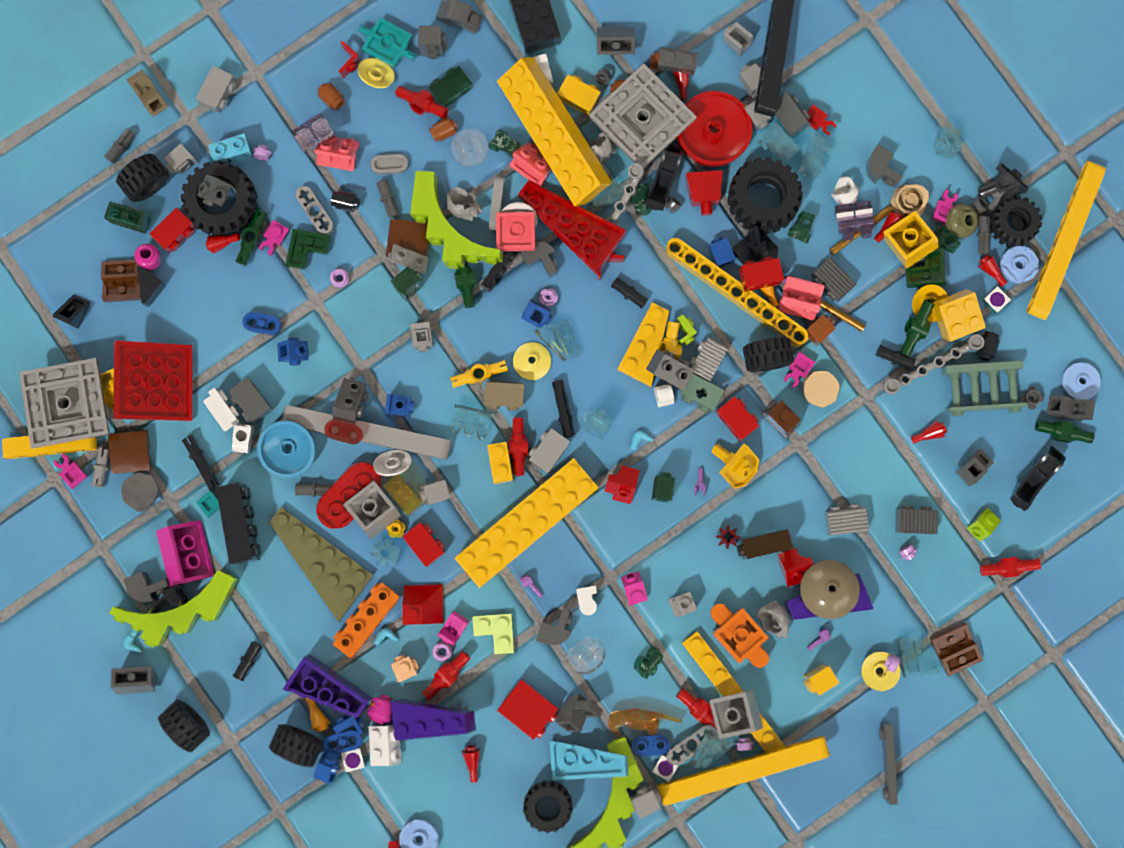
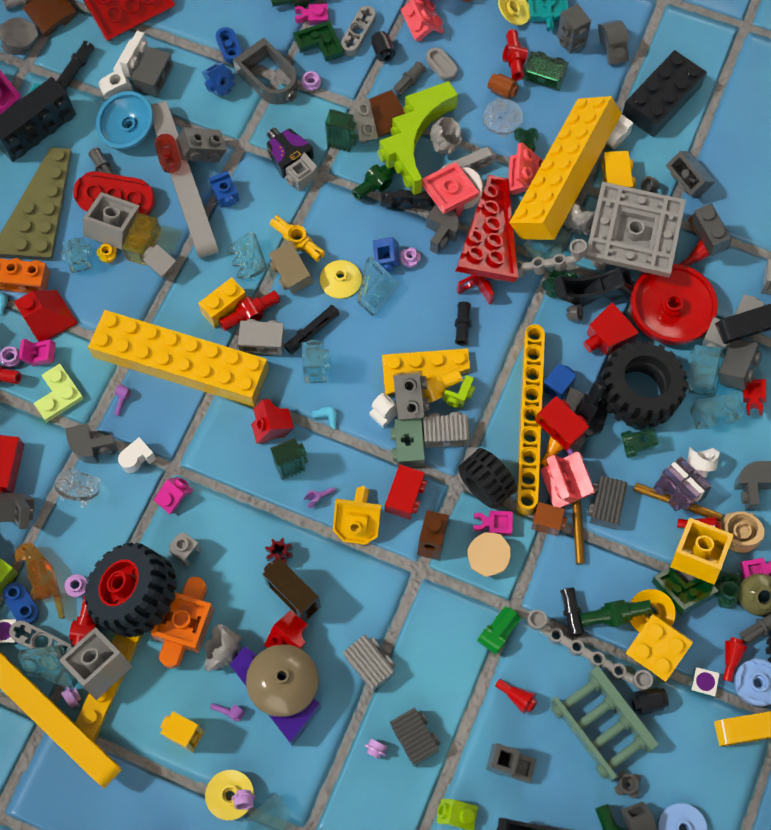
camera: 60 degrees right, 15 degrees down
(288, 314) = (256, 54): none -> dark grey window
(392, 462) = (165, 212): white dish -> none
(394, 335) = (286, 148): none -> torso
(424, 544) = (105, 282): red brick -> none
(648, 665) = (98, 548): clear green plate -> none
(657, 693) = (78, 592): none -> lavender plate
(698, 660) = (130, 590): none -> black wheel
(879, 420) = (496, 634): none -> green piece

